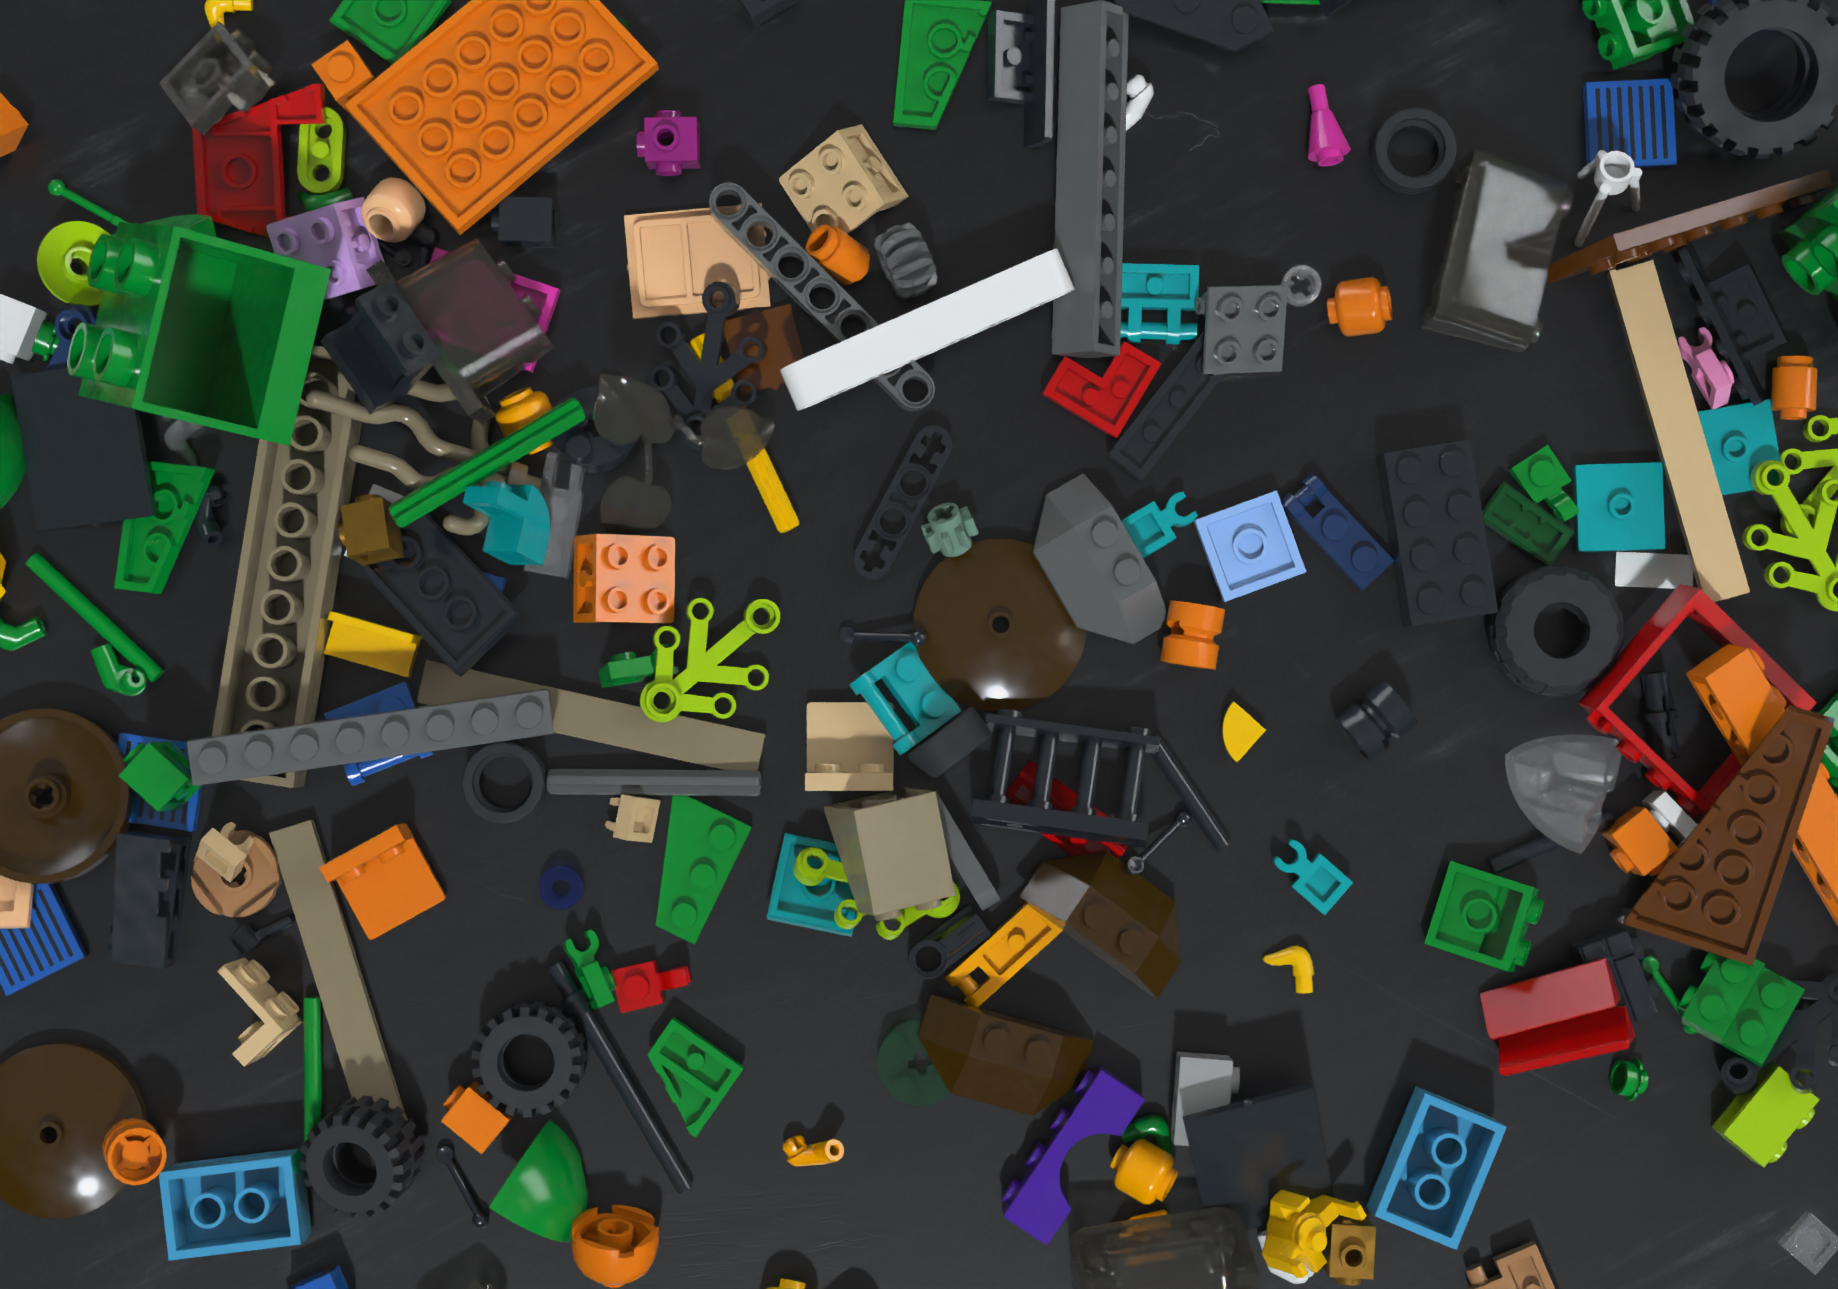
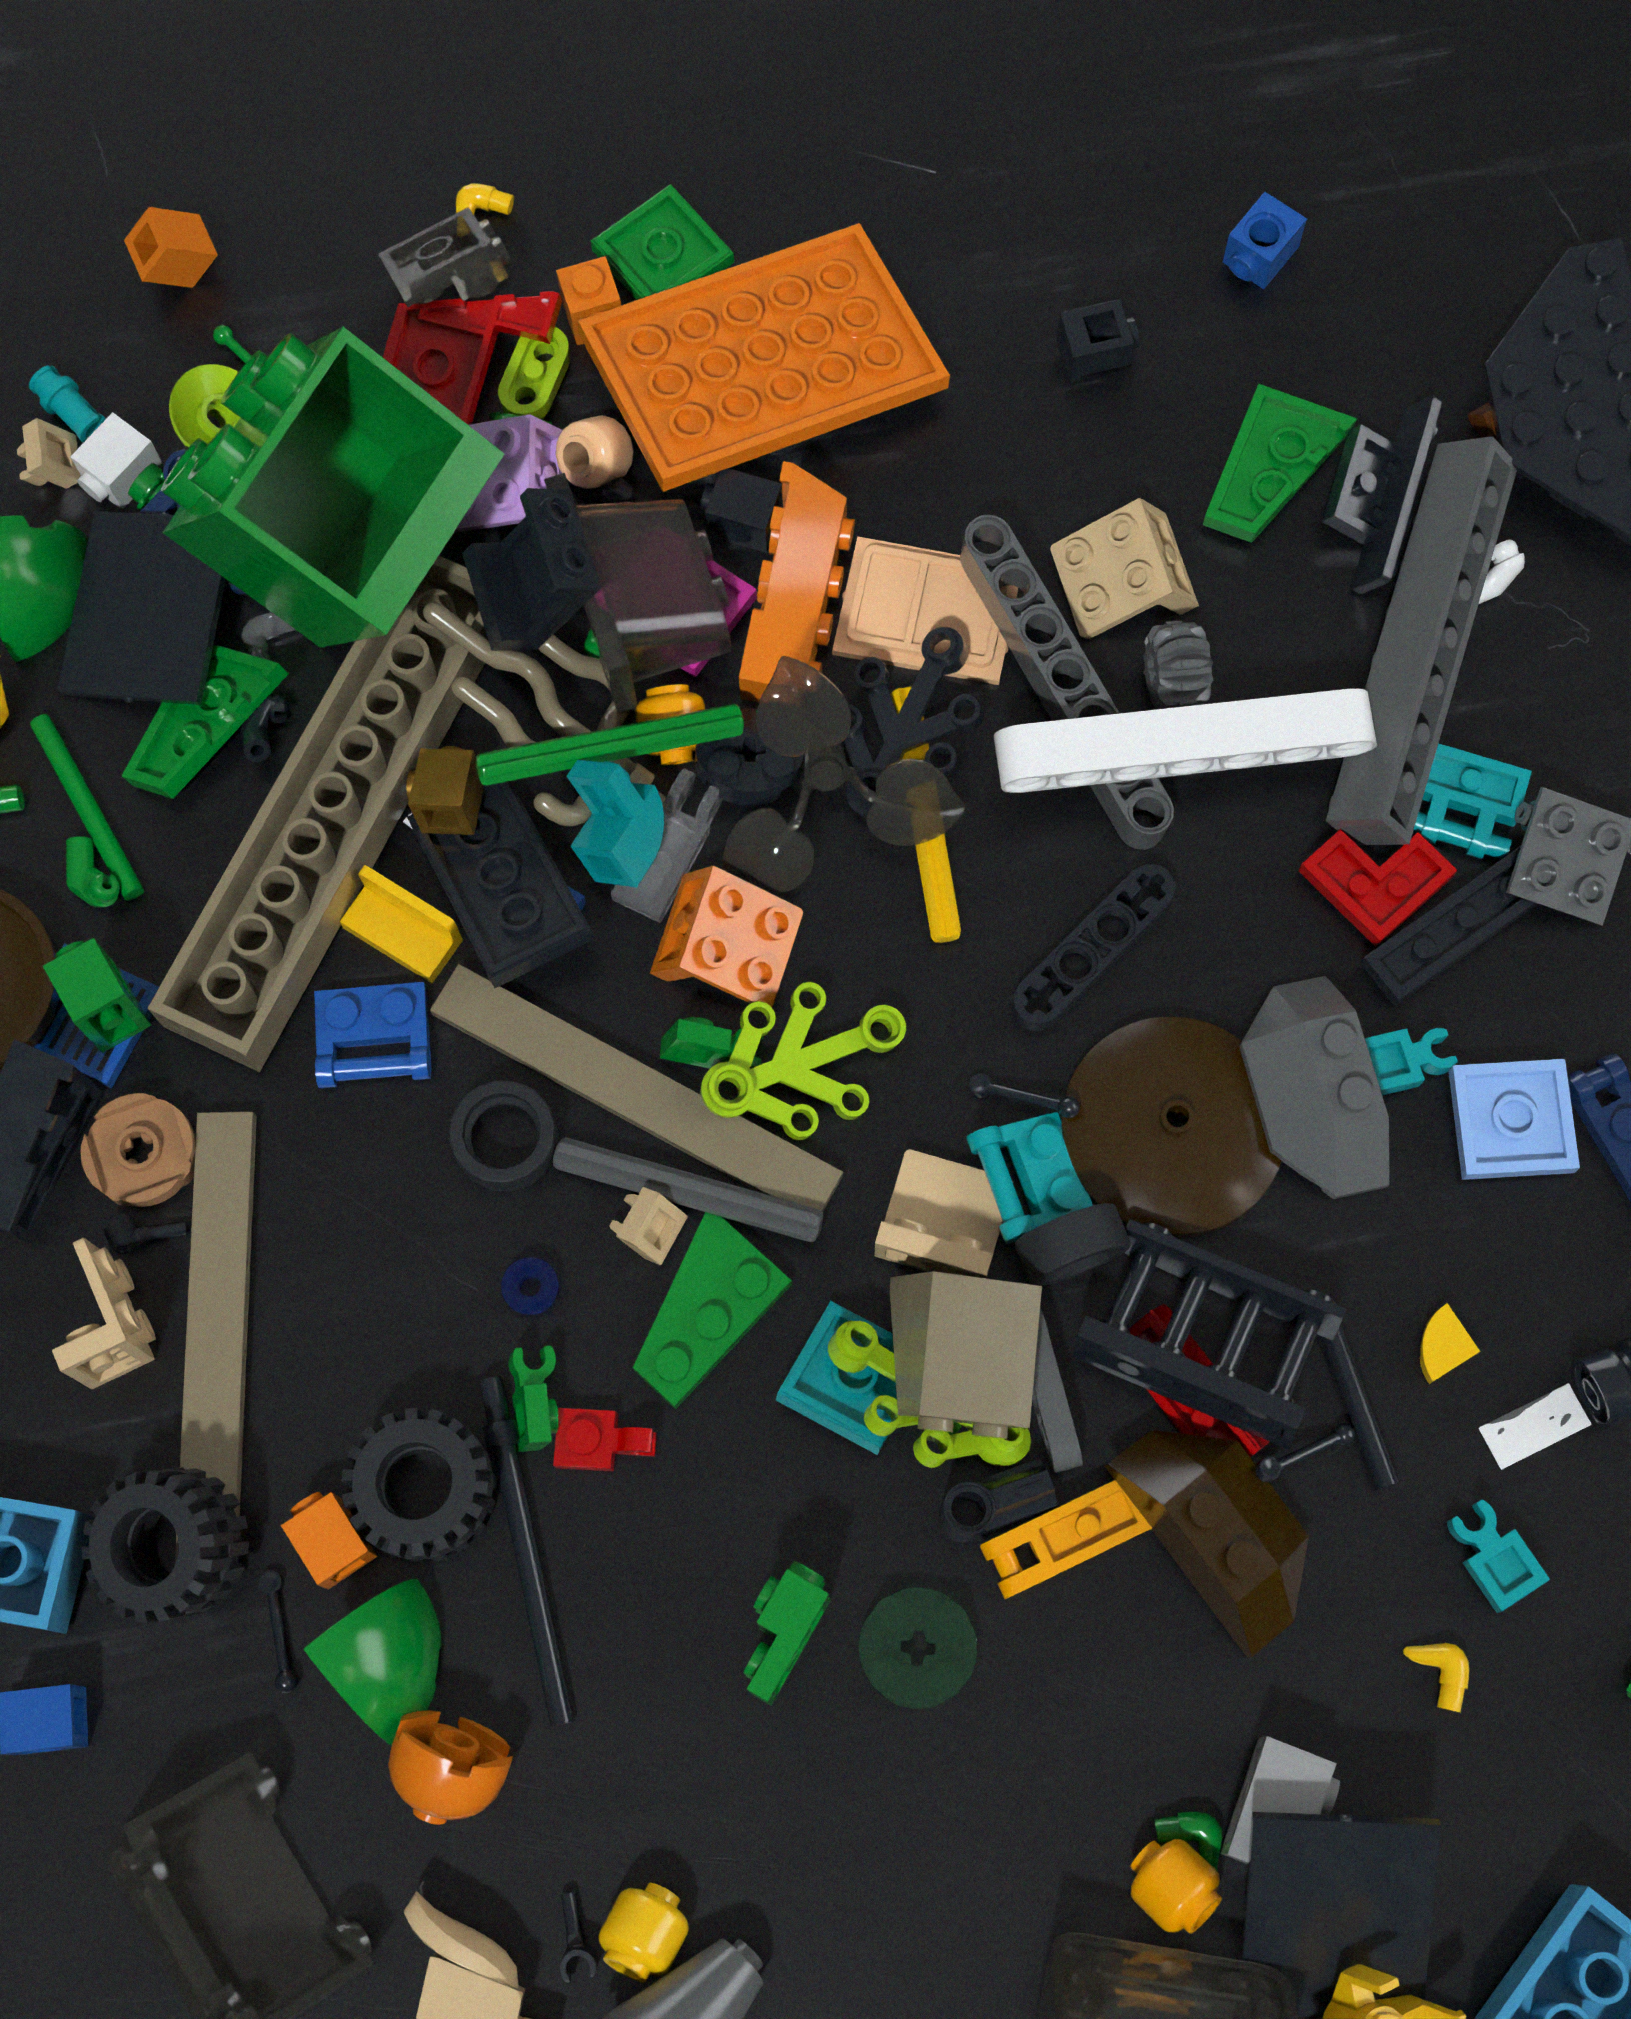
camera: 20 degrees right, 15 degrees down
(222, 854) = (132, 1113): tan tile -> none
(312, 1063) = (150, 1404): green bar -> none
(369, 737) = (360, 1016): dark grey brick -> none
(385, 880) = (316, 1208): orange bracket -> none
(591, 283) = (798, 579): none -> orange wedge
(681, 154) = (937, 467): magenta brick -> none
(693, 1072) = (620, 1571): green wing -> none
(779, 332) = (976, 748): reddish brown piece -> none
(814, 1154) = (747, 1728): light orange arm -> none
(822, 1076) = (789, 1614): none -> green plate
(838, 254) = (1101, 638): orange brick -> none
(949, 529) = (1143, 990): sand green gear -> none
(1000, 1056) = (1028, 1666): dark brown wedge -> none
(1101, 1107) = (1024, 1880): dark purple arch -> none
(1192, 635) = (1417, 1198): orange wheel -> none
(1318, 769) = (1534, 1426): none -> white sticker

